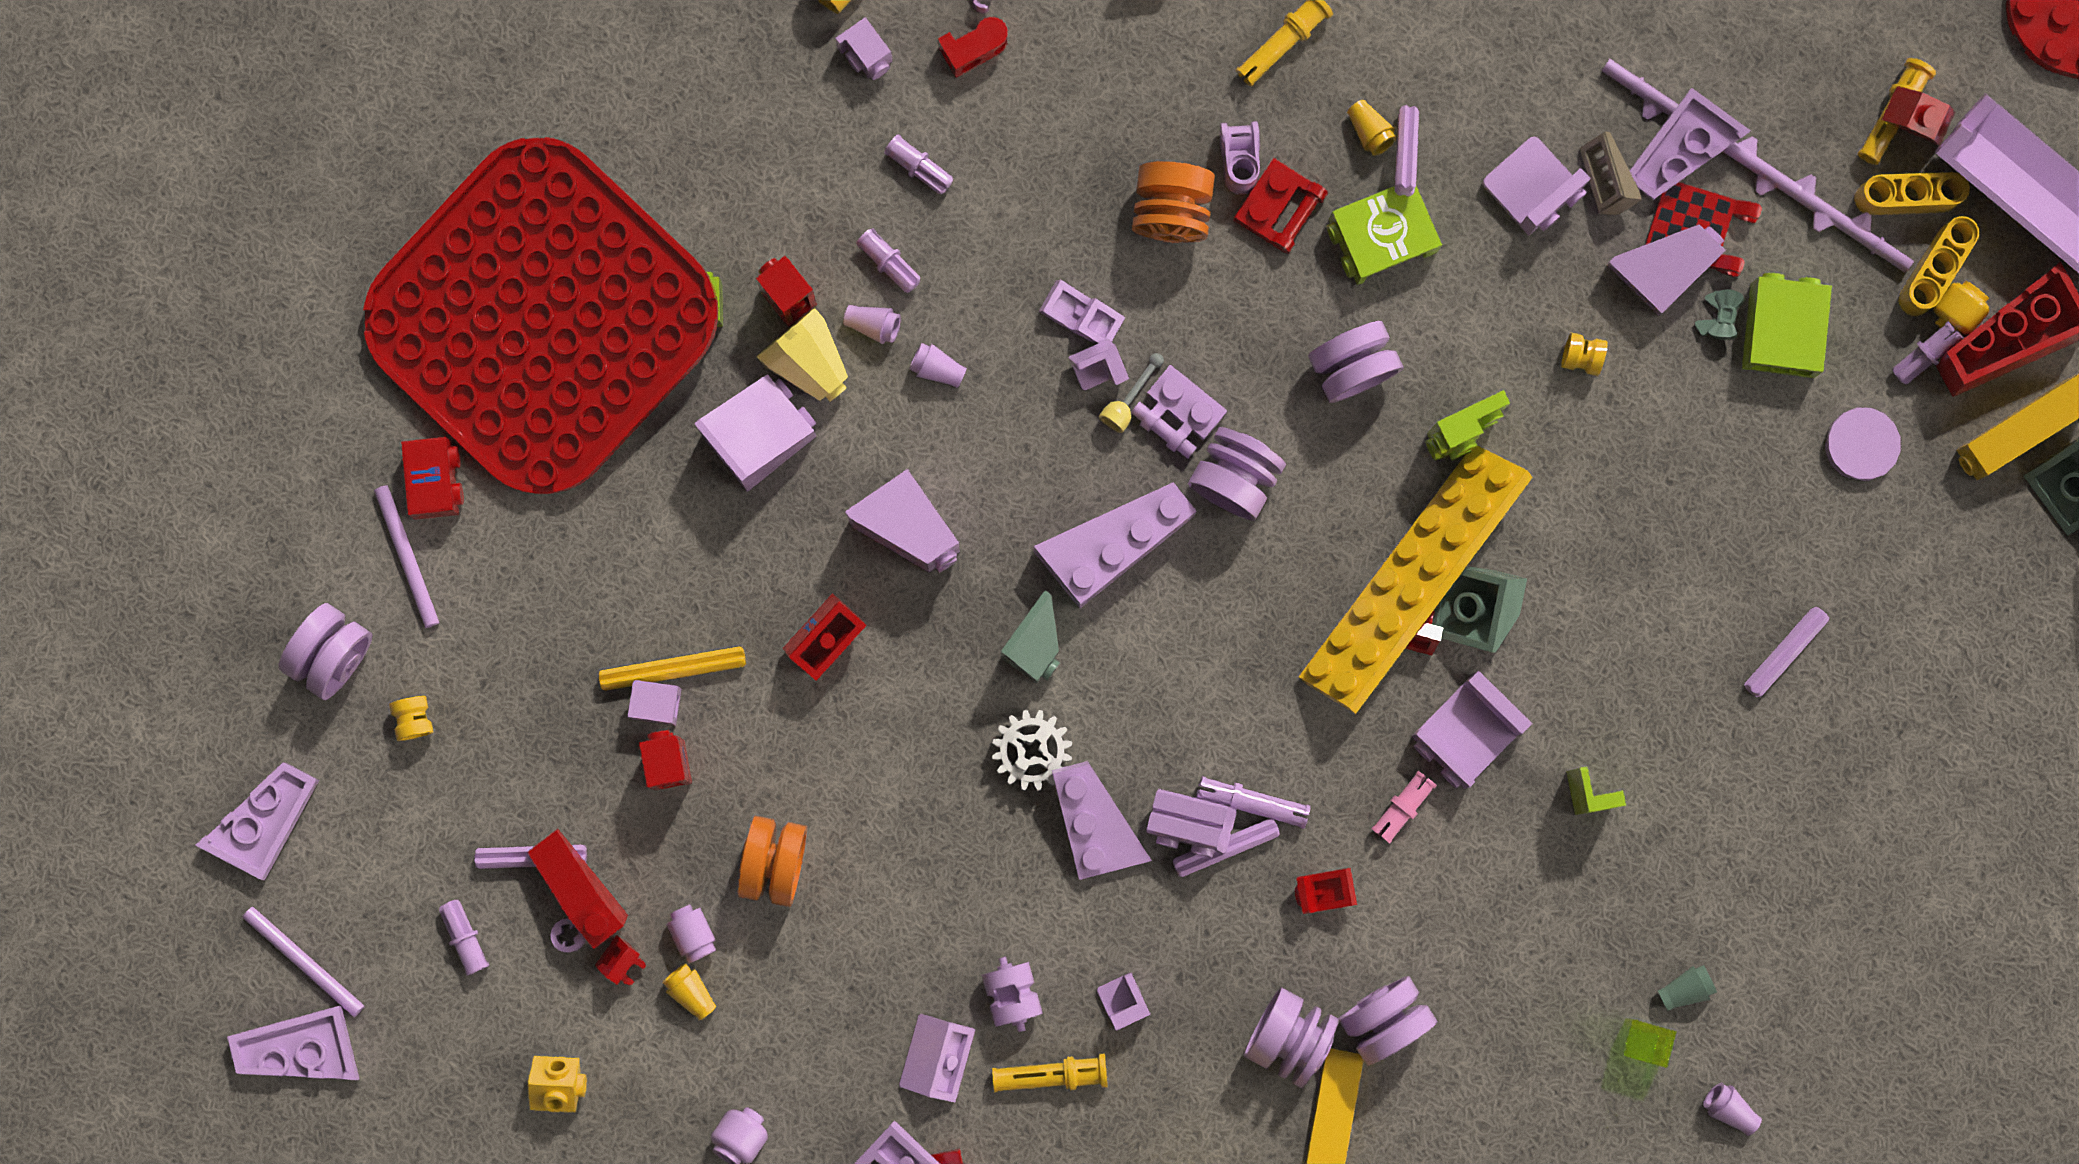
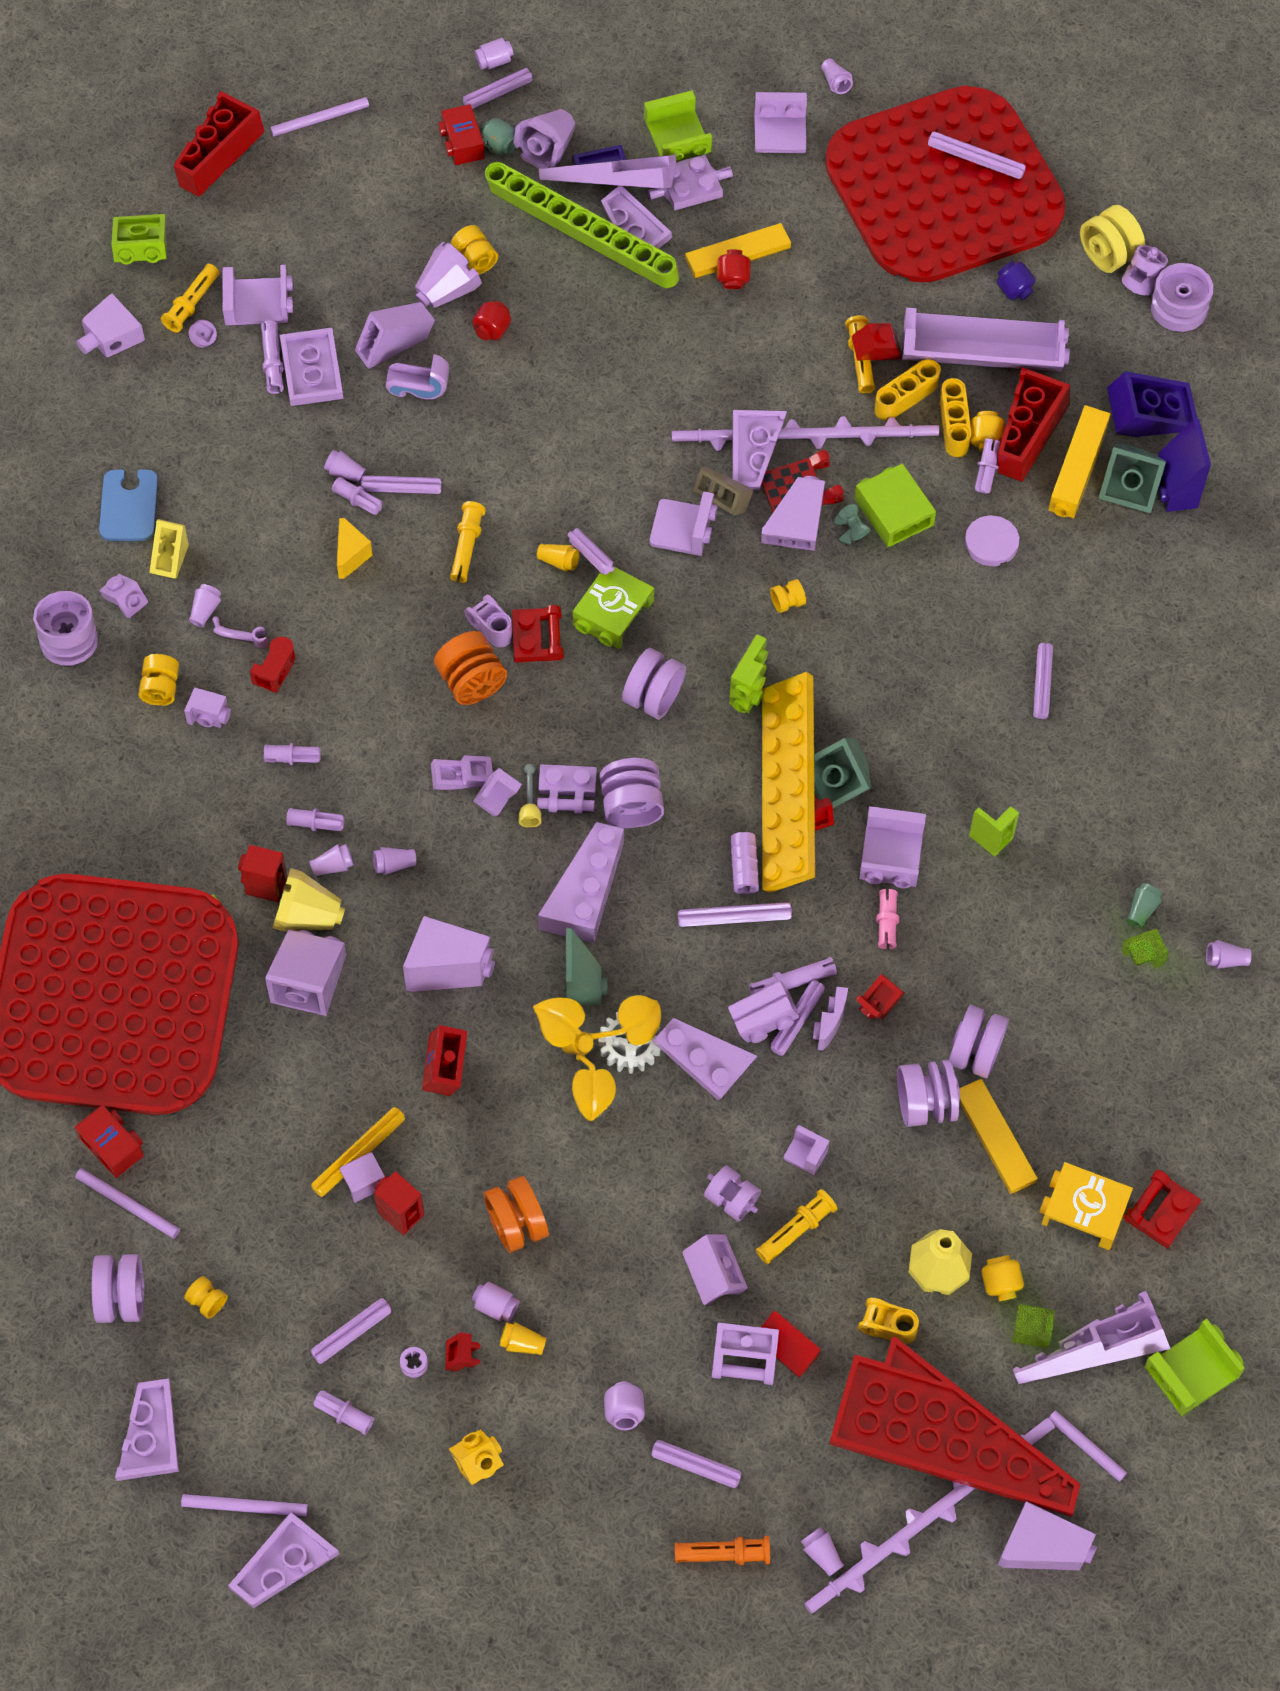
camera: 30 degrees left, 20 degrees down
(578, 889) = (398, 1322): red slope -> none
(964, 699) = (560, 1022): none -> yellow plant
(1248, 684) = (734, 914): none -> lavender axle
(1248, 882) = (830, 1022): none -> lavender slope
(1300, 635) = (744, 863): none -> lavender axle

